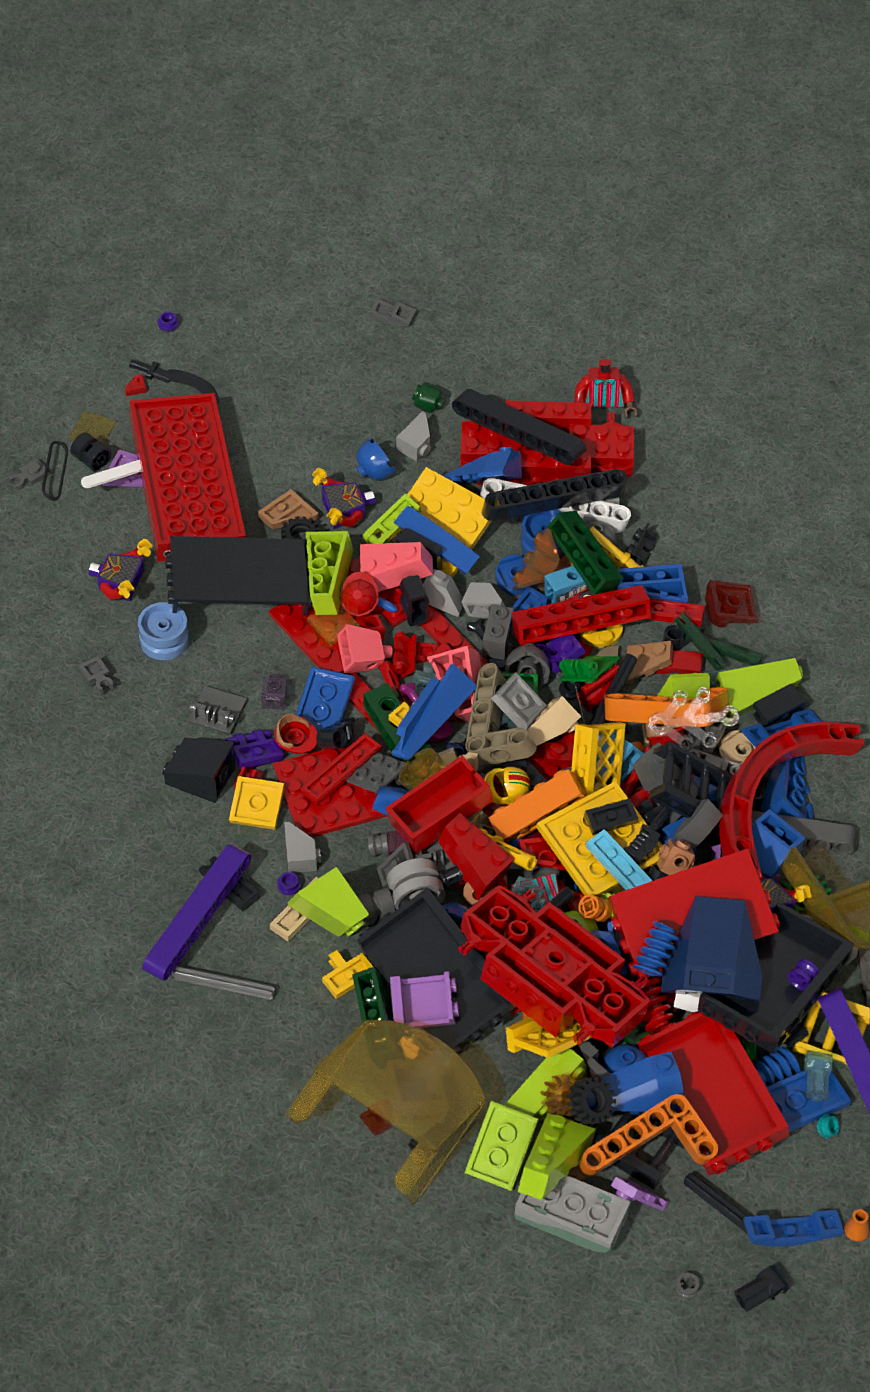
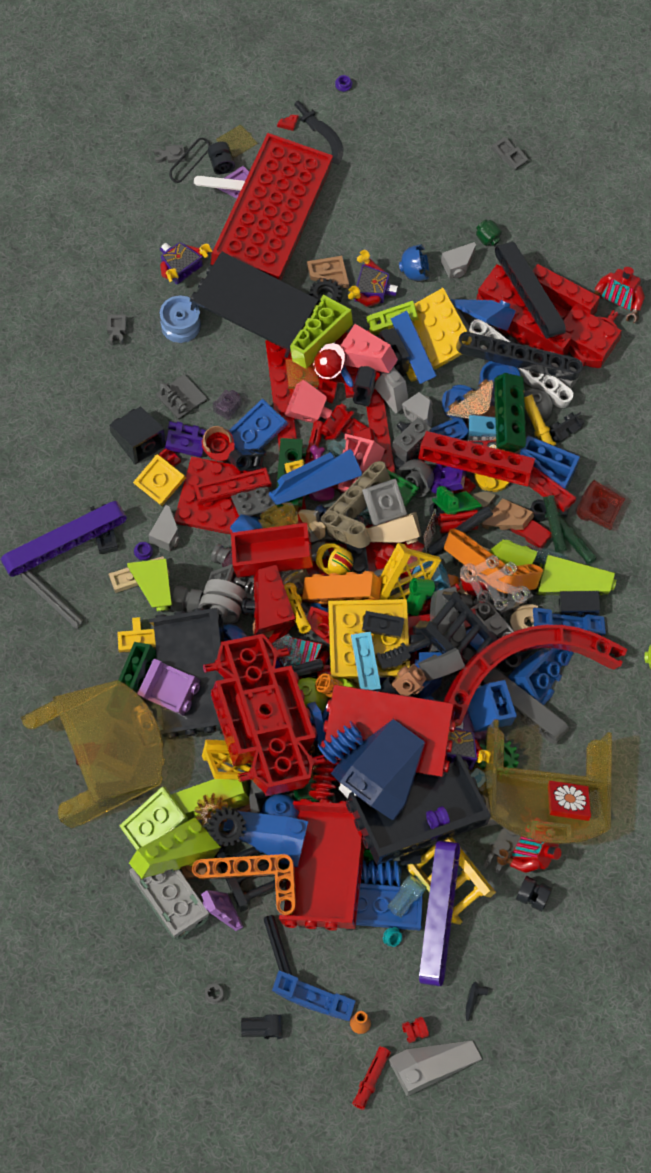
camera: 30 degrees right, 10 degrees up
(620, 767) = (419, 591): none -> green piece

